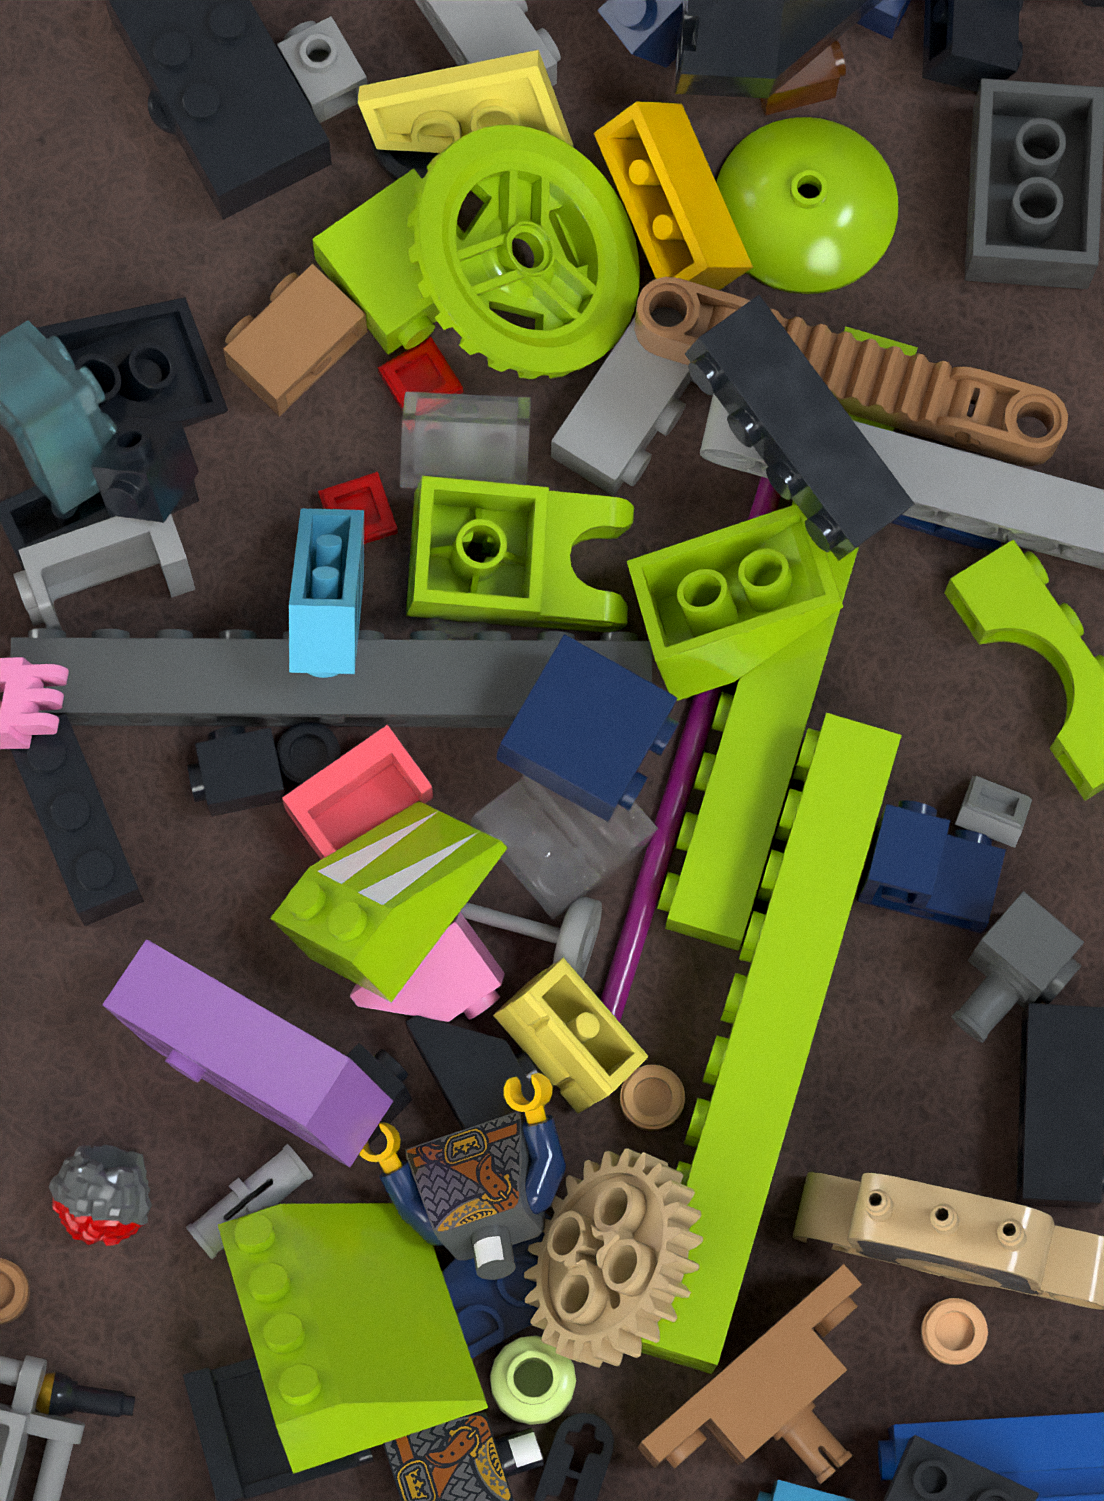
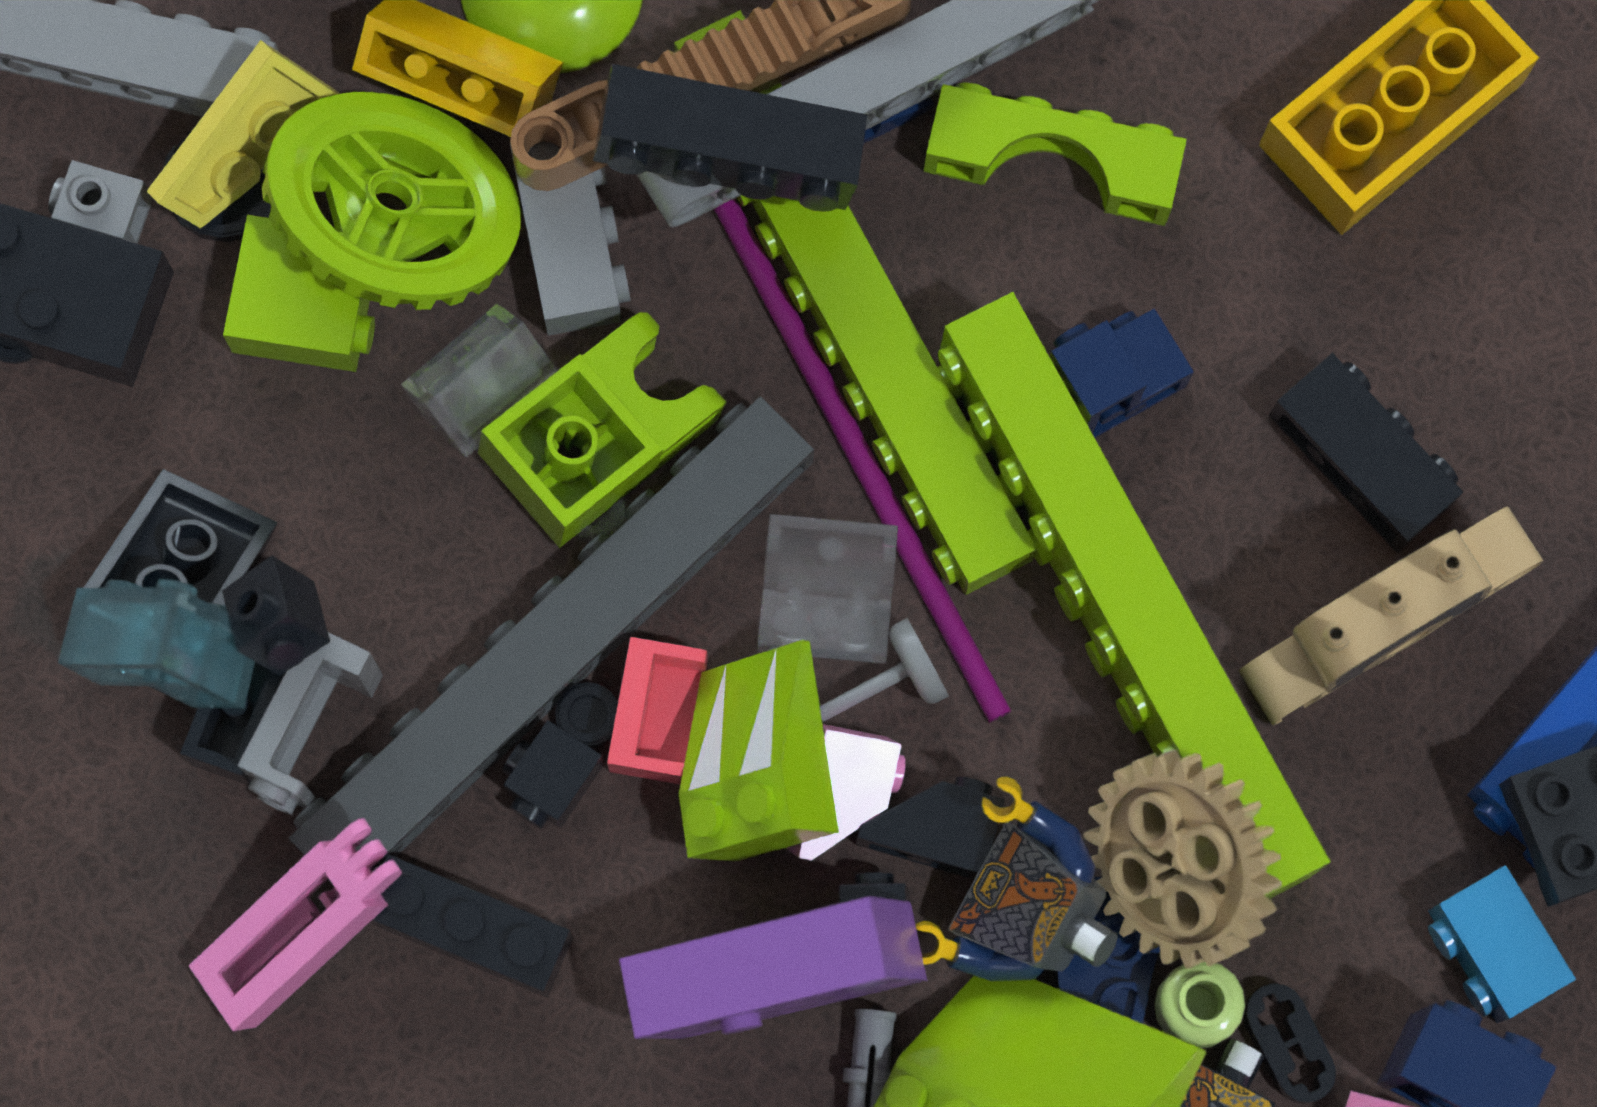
camera: 45 degrees left, 0 degrees up
(294, 338) = (276, 423): medium nougat brick -> none
(326, 592) = (495, 580): medium azure brick -> none
(367, 495) = (448, 506): red tile -> none
(419, 370) = (393, 361): red tile -> none
(571, 1035) = (983, 732): light yellow brick -> none
(589, 729) = (787, 499): dark blue brick -> none
(652, 1098) = (1077, 723): light nougat tile -> none
(732, 599) = (791, 308): lime slope -> none
(769, 1390) = (1372, 846): medium nougat brick -> none
(954, 1331) = (1445, 683): light nougat tile -> none
(994, 811) = (1114, 291): light grey tile -> none
(1023, 960) = (1242, 372): dark grey brick -> none

